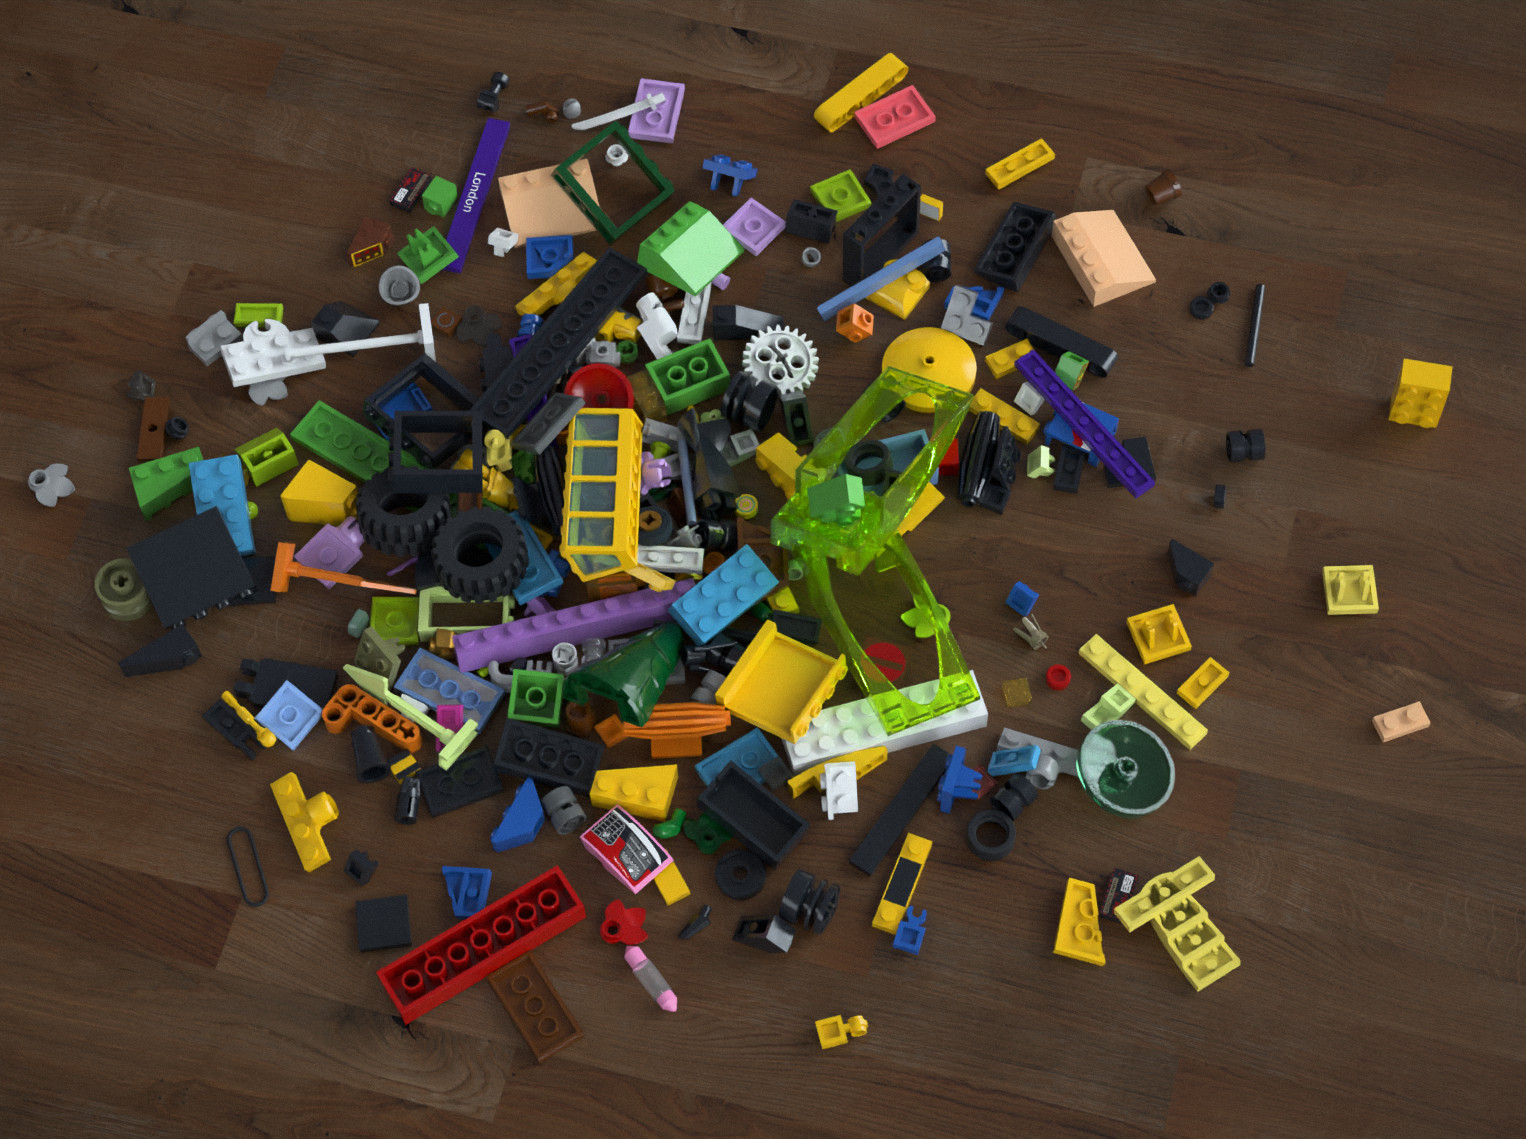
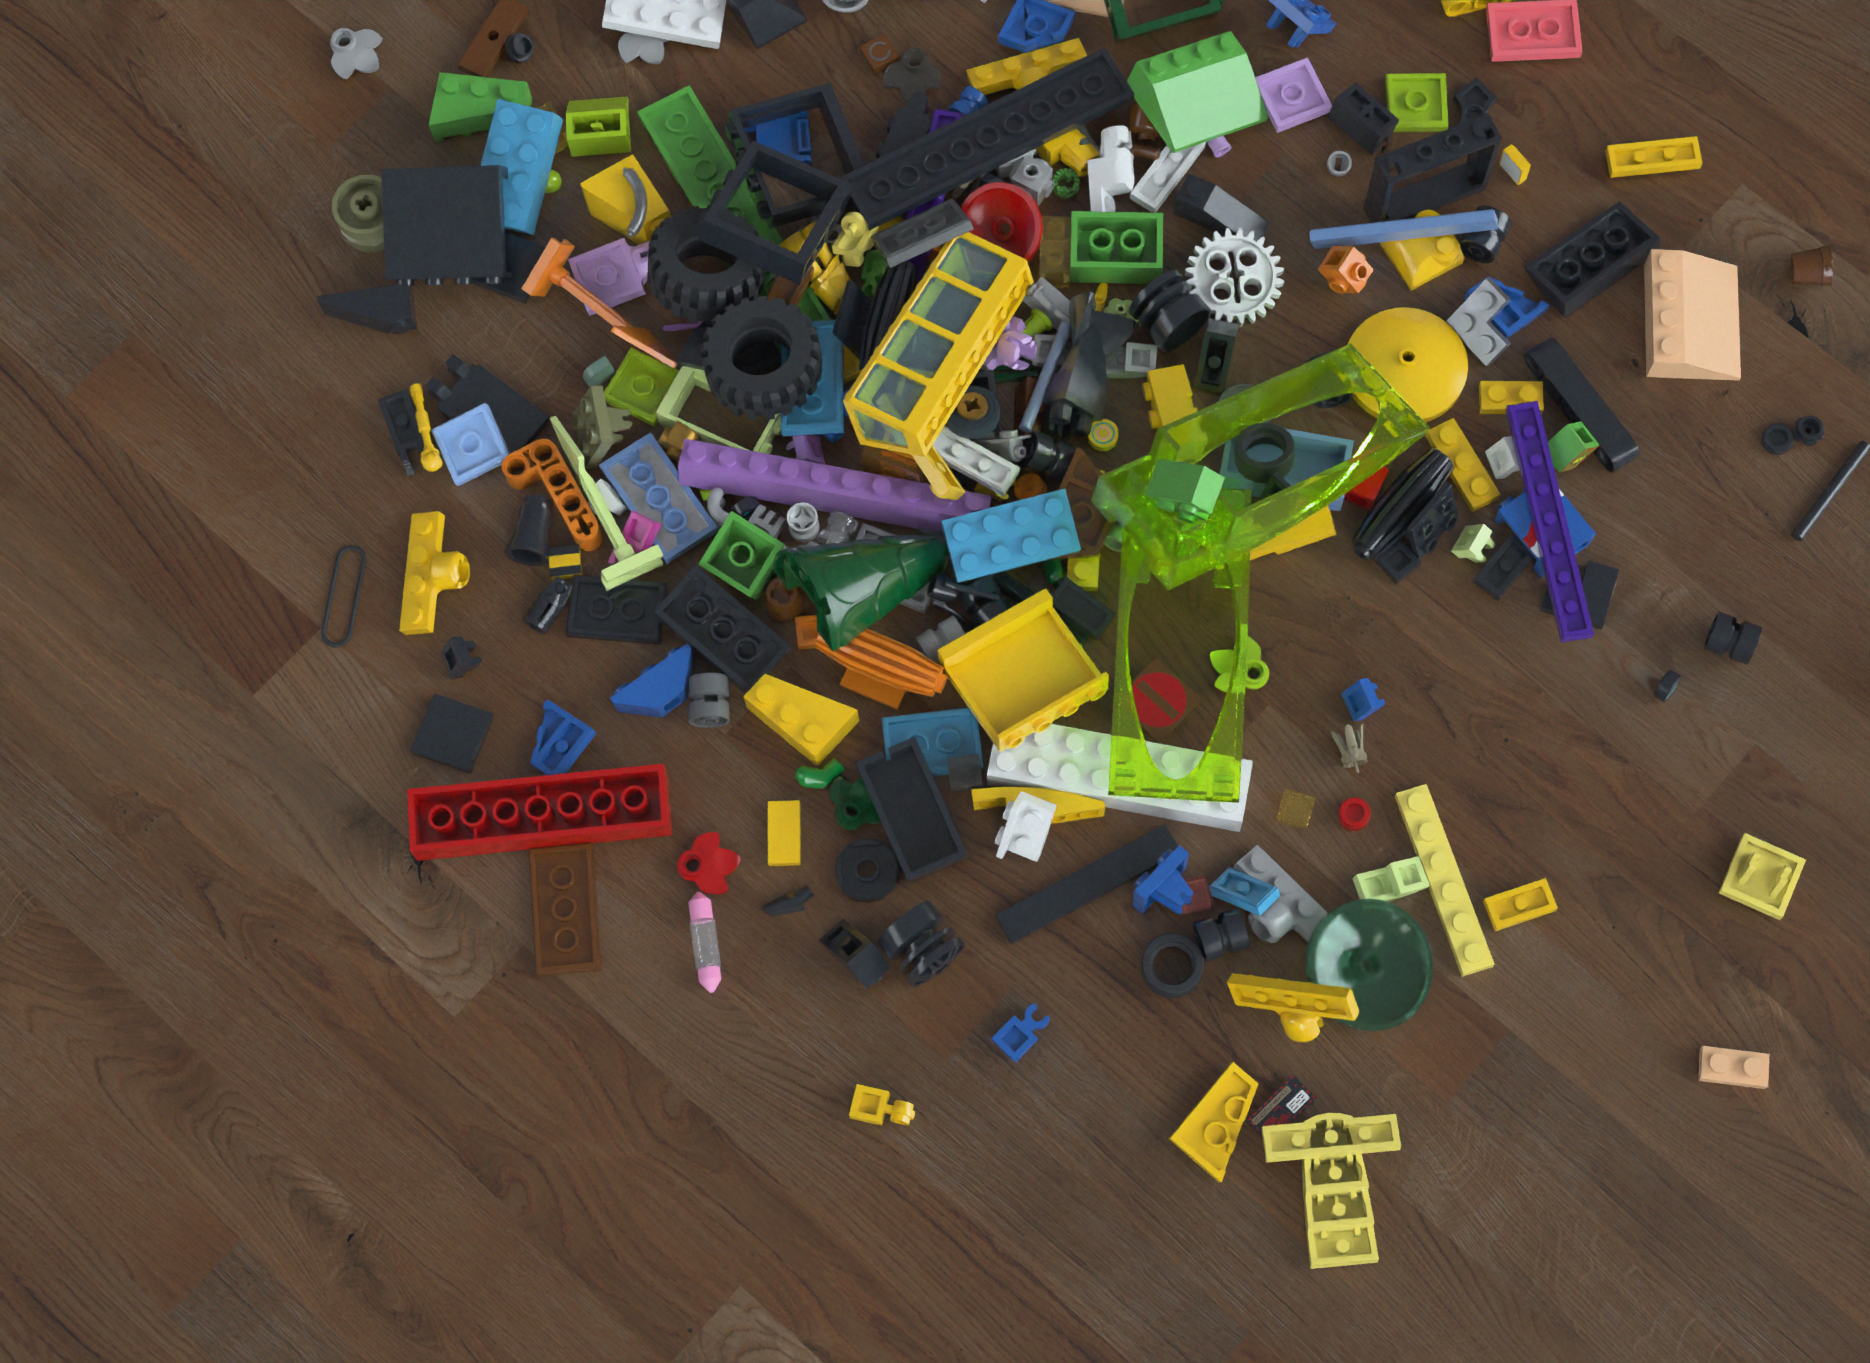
camera: 30 degrees right, 10 degrees up
(333, 488) = (640, 201): none -> flat silver piece
(423, 337) = (842, 62): white tile -> none
(626, 849) = (753, 779): slope -> none
(902, 883) = (1042, 971): yellow plate -> none
(1090, 815) = (1297, 1003): none -> yellow plate
(1158, 634) = (1500, 820): yellow plate -> none
(1188, 568) = (1580, 757): black slope -> none

